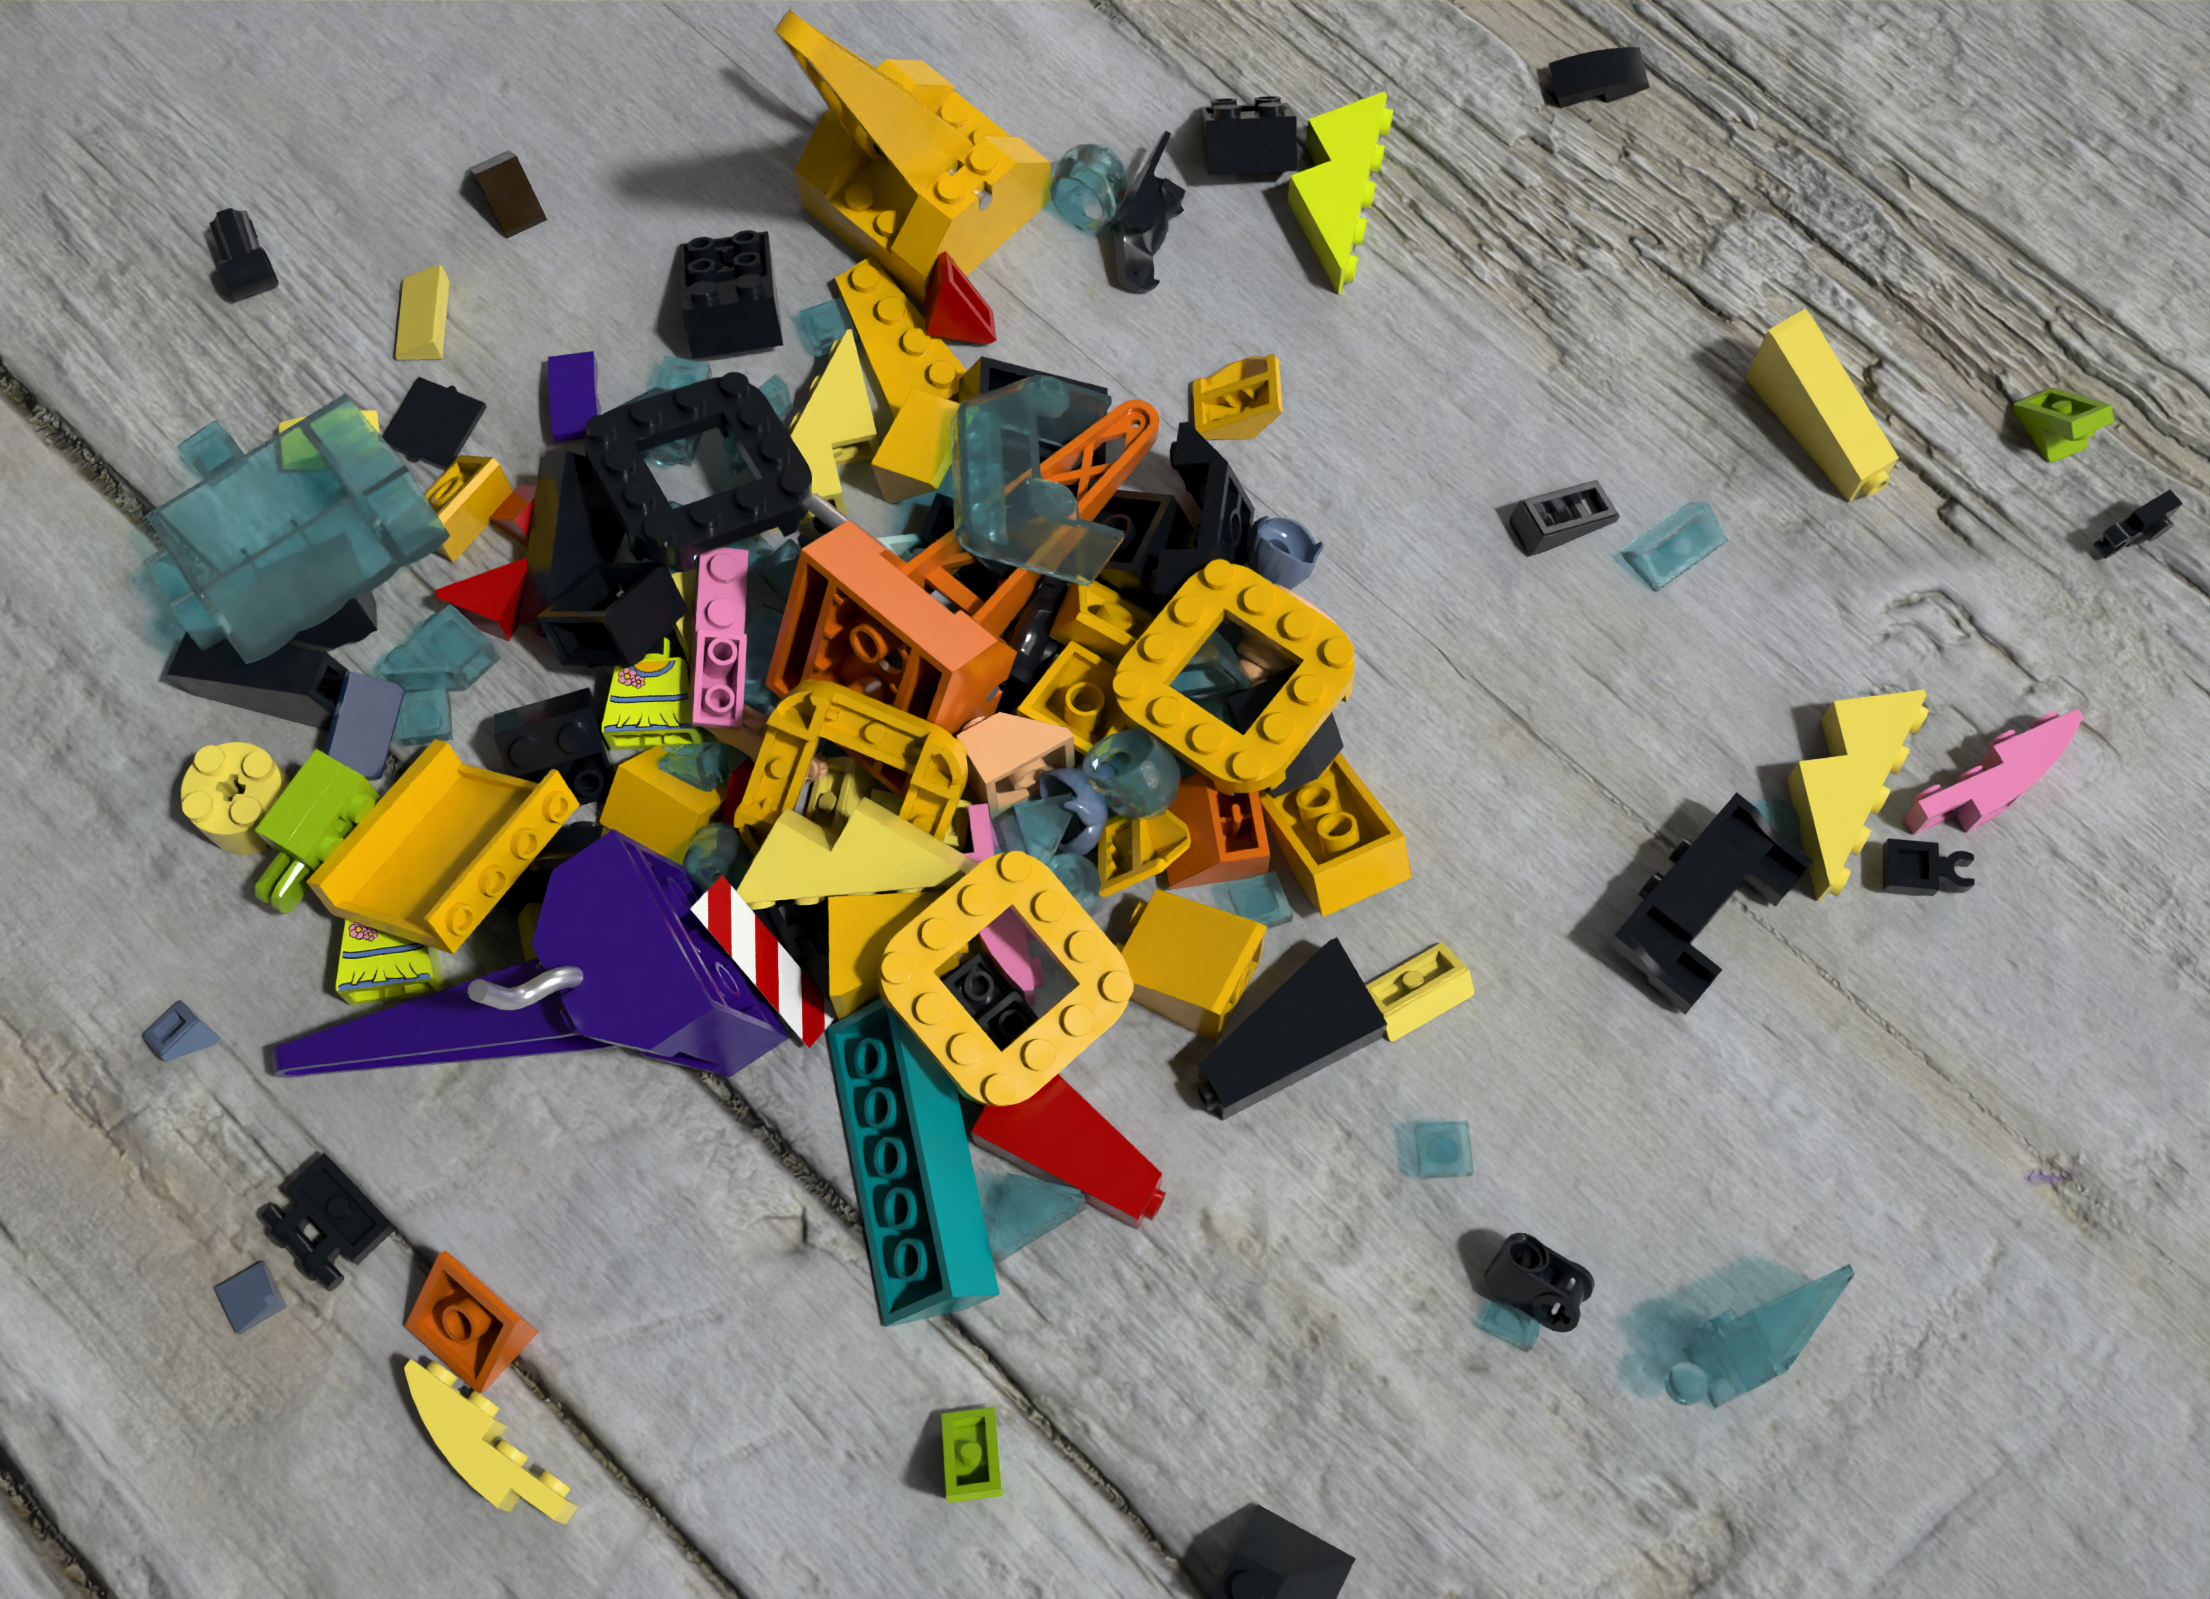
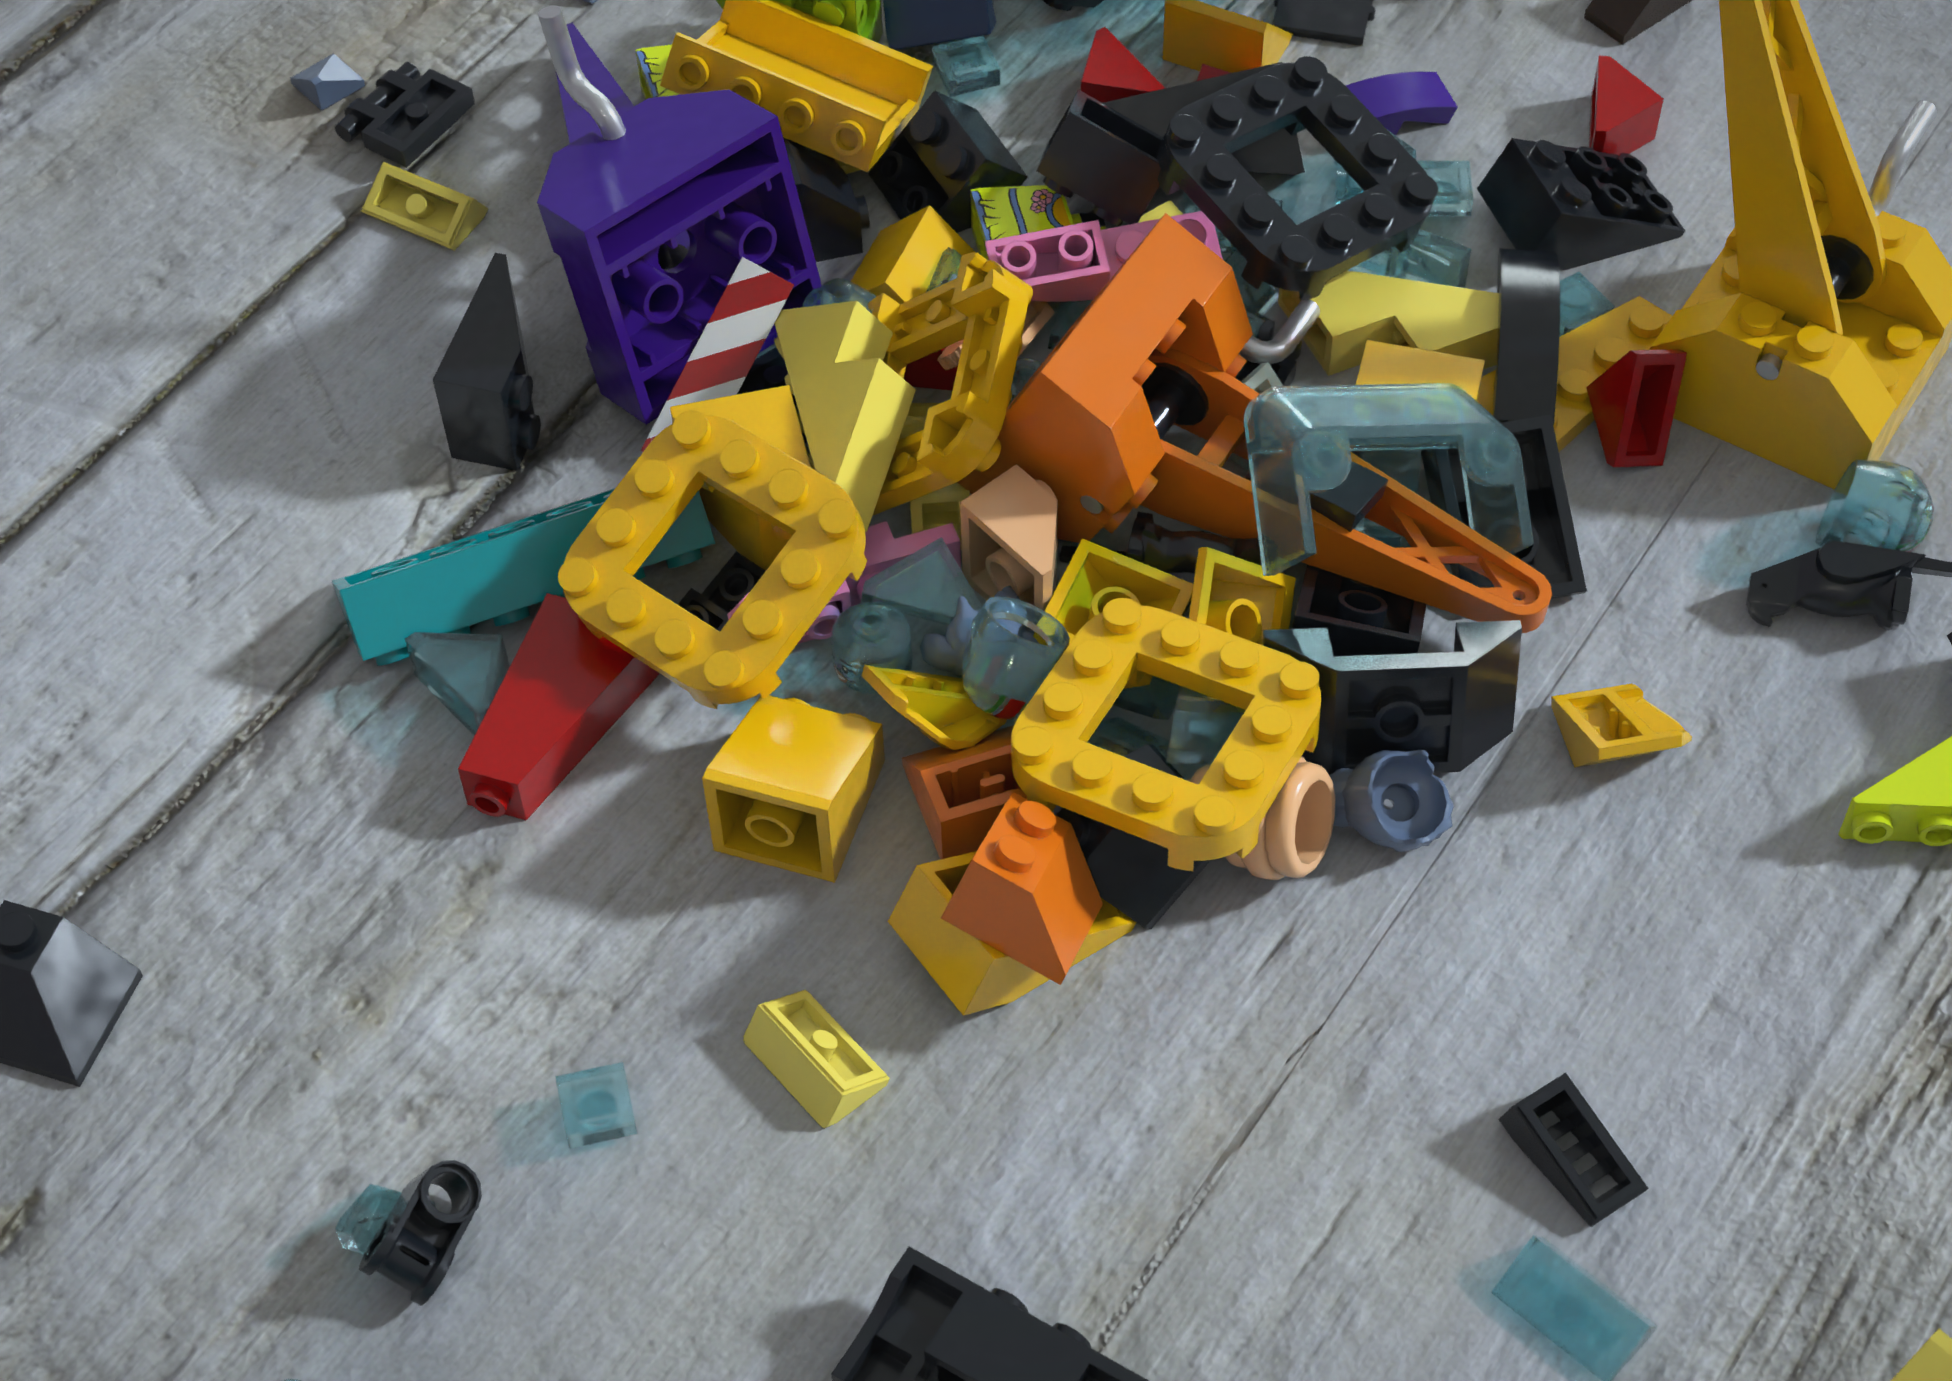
camera: 80 degrees right, 15 degrees down
(441, 655) = (1040, 60): clear light blue slope -> none
(454, 1213) = (422, 207): none -> light yellow slope
(467, 1323) = (315, 238): orange slope -> none
(467, 1437) = (180, 258): light yellow slope -> none
(637, 240) = (1621, 110): none -> red slope
(714, 1151) = (486, 379): none -> black slope
(867, 352) = (1527, 334): none -> black slope
(971, 1455) = (169, 663): lime slope -> none
(1261, 900) = (893, 852): clear light blue plate -> none
(1295, 1033) = (729, 913): black slope -> none
(1342, 809) = (1028, 890): none -> orange slope

